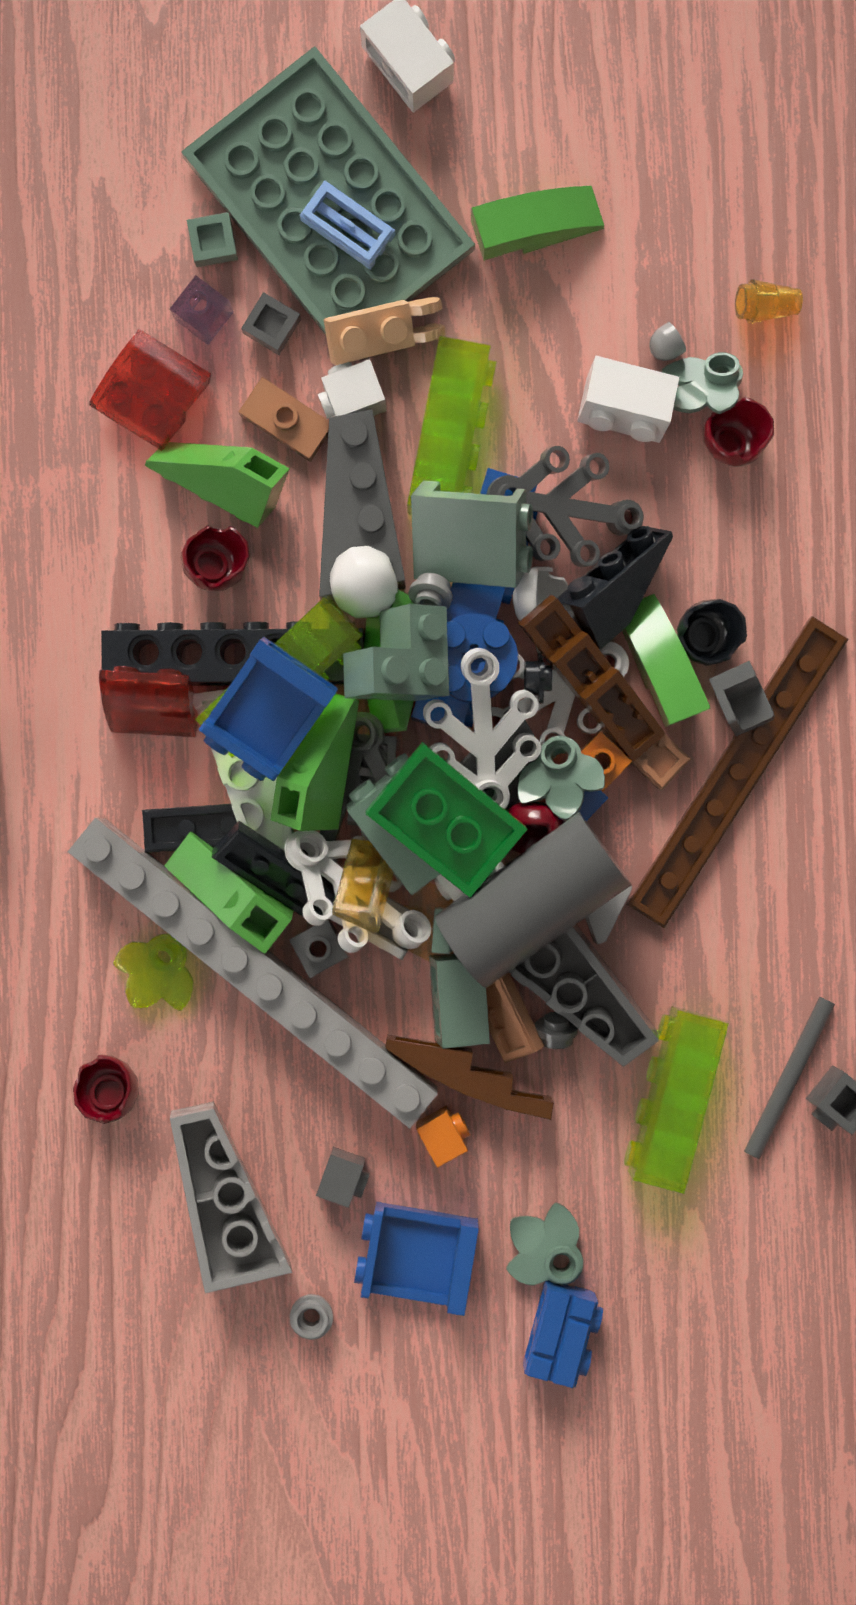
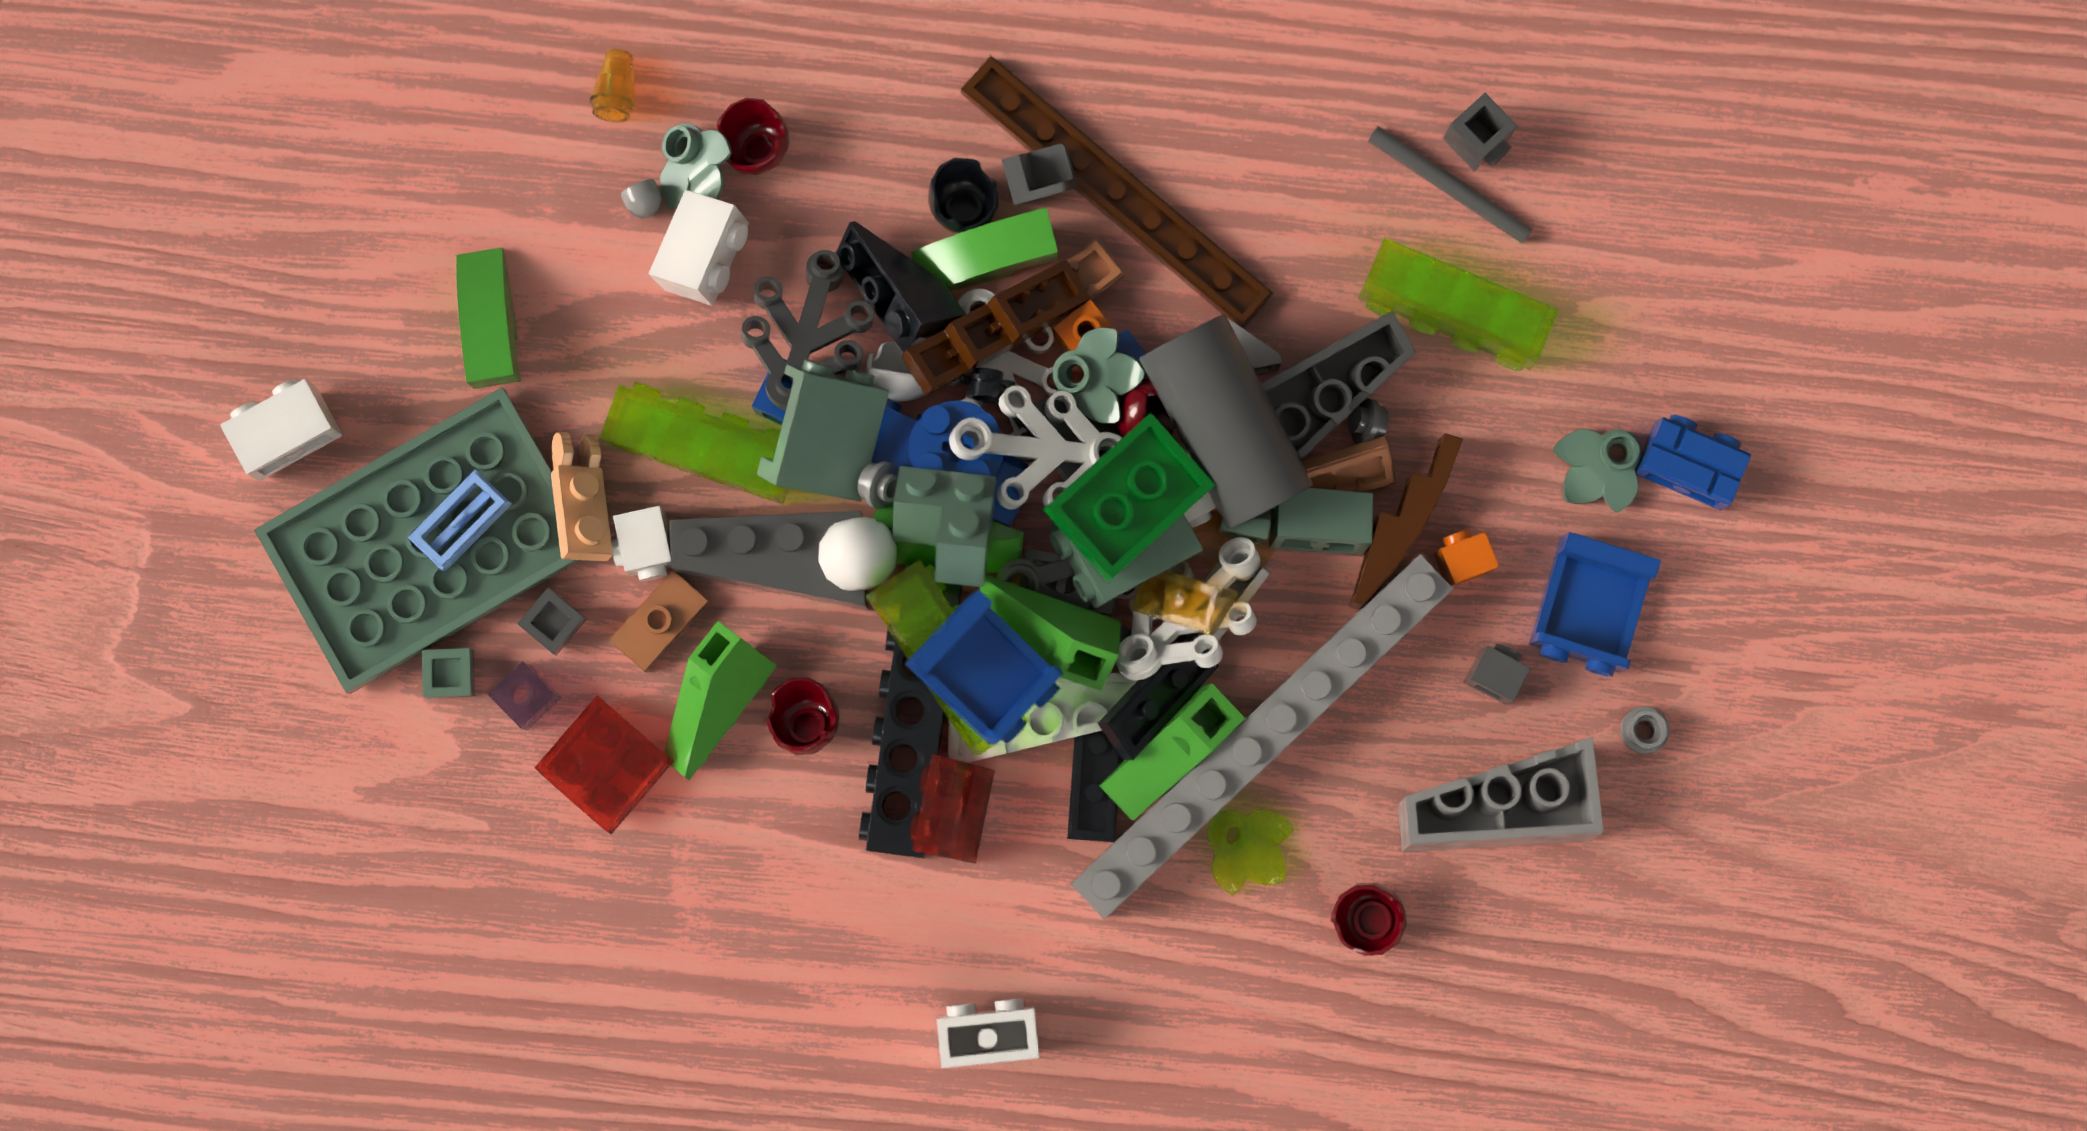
camera: 90 degrees left, 5 degrees down
(326, 934) = (1239, 680): dark grey plate -> none

